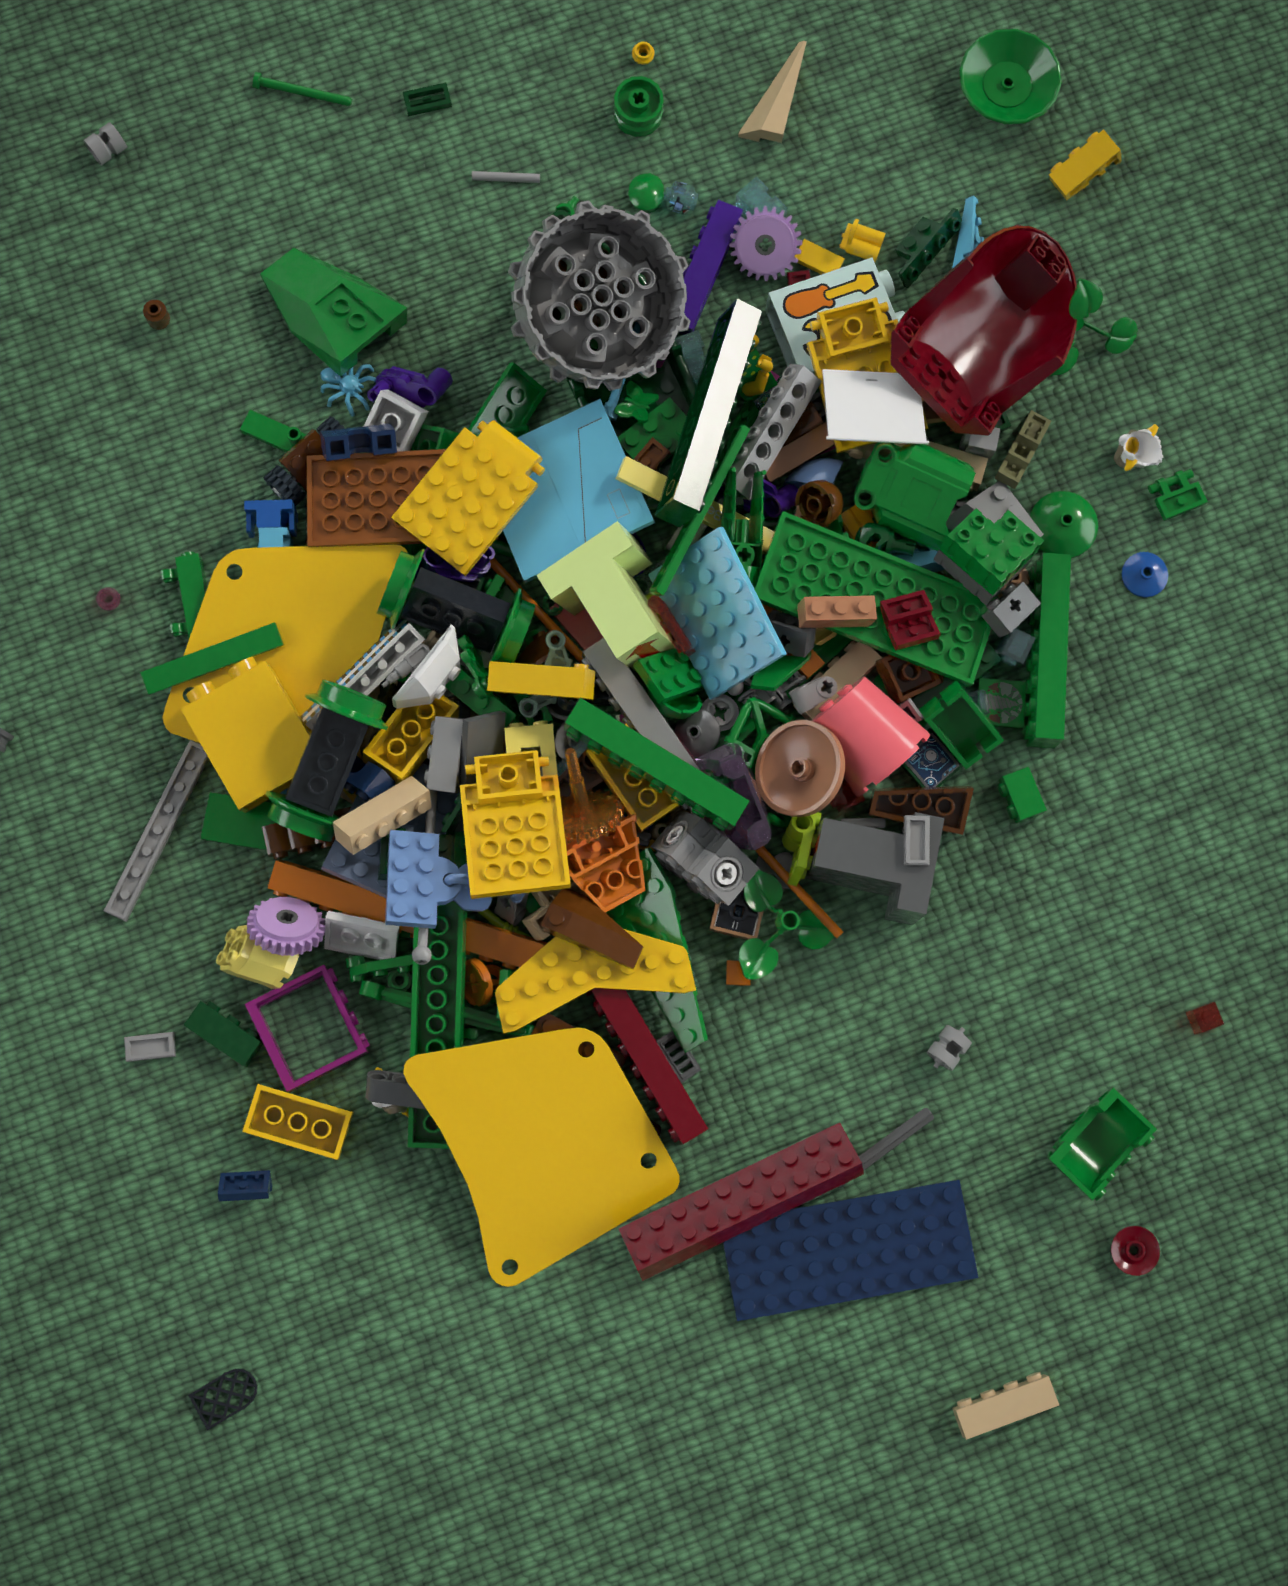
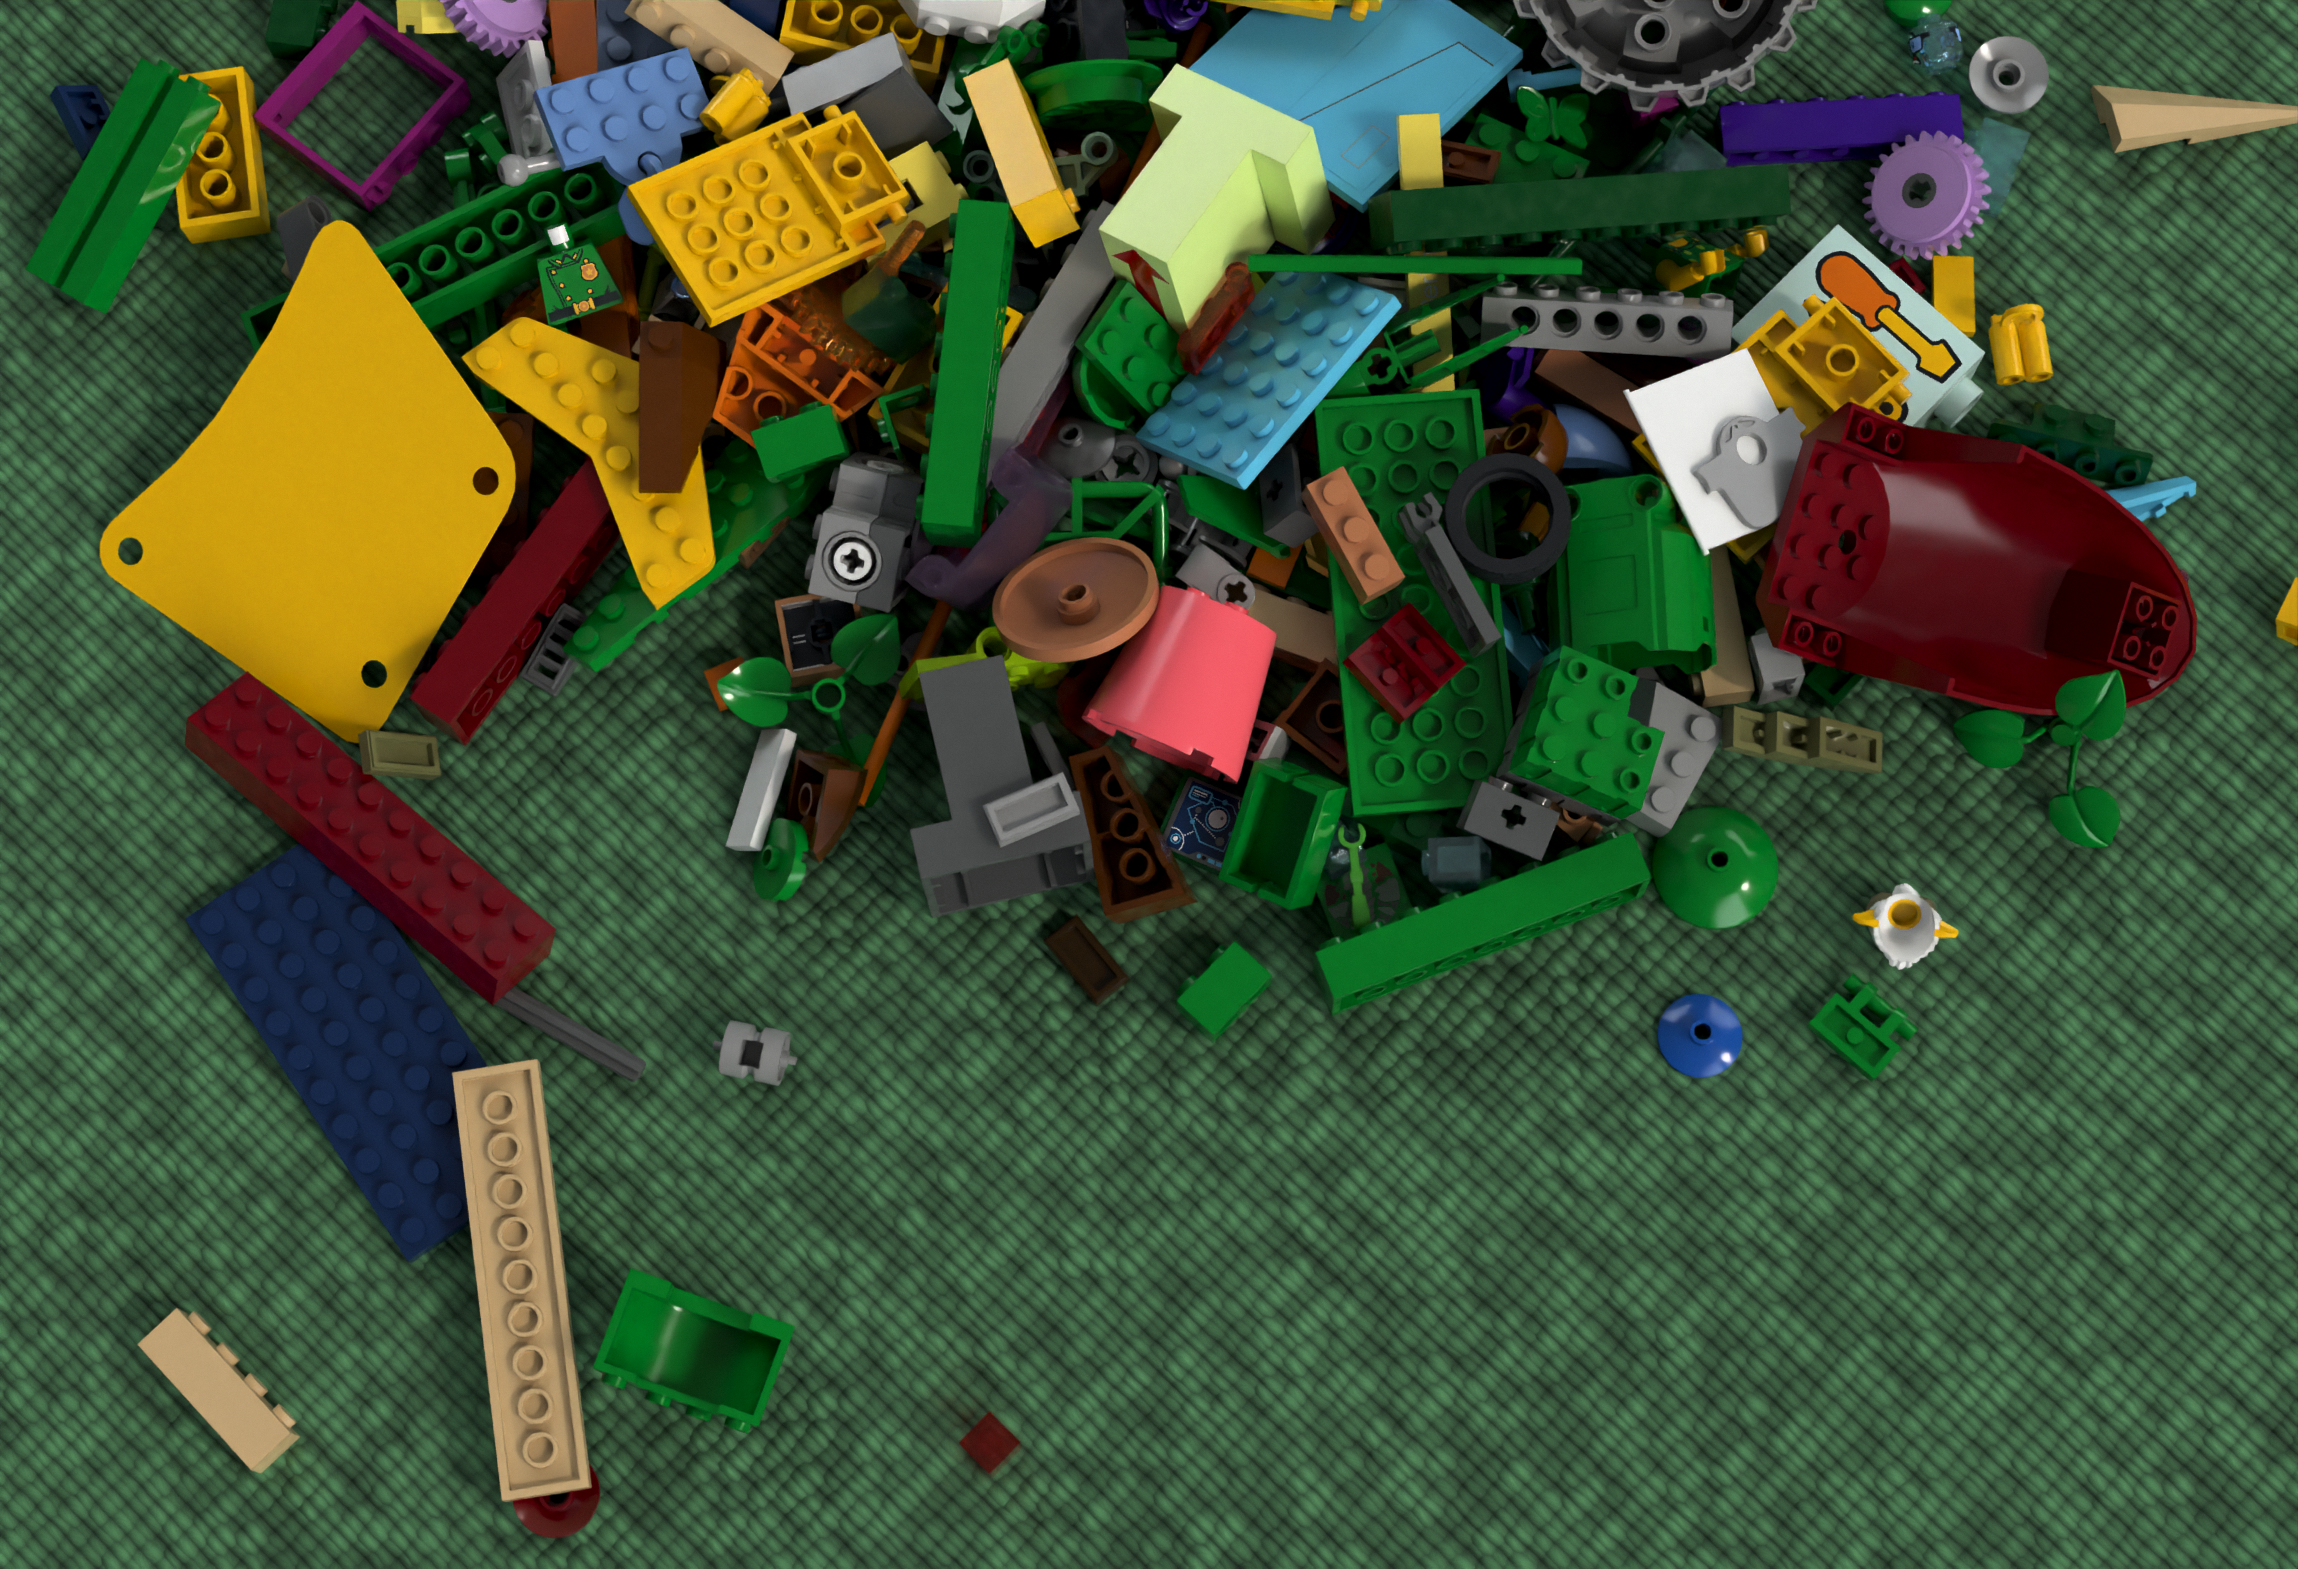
camera: 75 degrees right, 5 degrees down
(297, 1180) = (124, 184): none -> green brick
(437, 820) = (735, 107): none -> yellow piece
(486, 952) = (574, 277): none -> green torso
(601, 791) = (889, 315): none -> clear green brick
(644, 871) = (800, 442): none -> green brick
(658, 822) = (891, 404): none -> green bracket
(702, 1165) = (399, 754): none -> olive tile
(719, 162) = (2012, 58): none -> light grey dish
(807, 982) = (761, 790): none -> white tile
(830, 952) = (823, 797): none -> reddish brown slope
(853, 988) = (779, 864): none -> green plate
(881, 573) = (1448, 574): none -> dark grey tile
(888, 514) = (1517, 468): none -> black tyre
(902, 401) = (1757, 490): none -> light grey piece
(972, 857) = (1086, 960): none -> dark brown tile
(1012, 707) = (1359, 908): none -> bright green piece
(1019, 1220) = (521, 1281): none -> tan plate

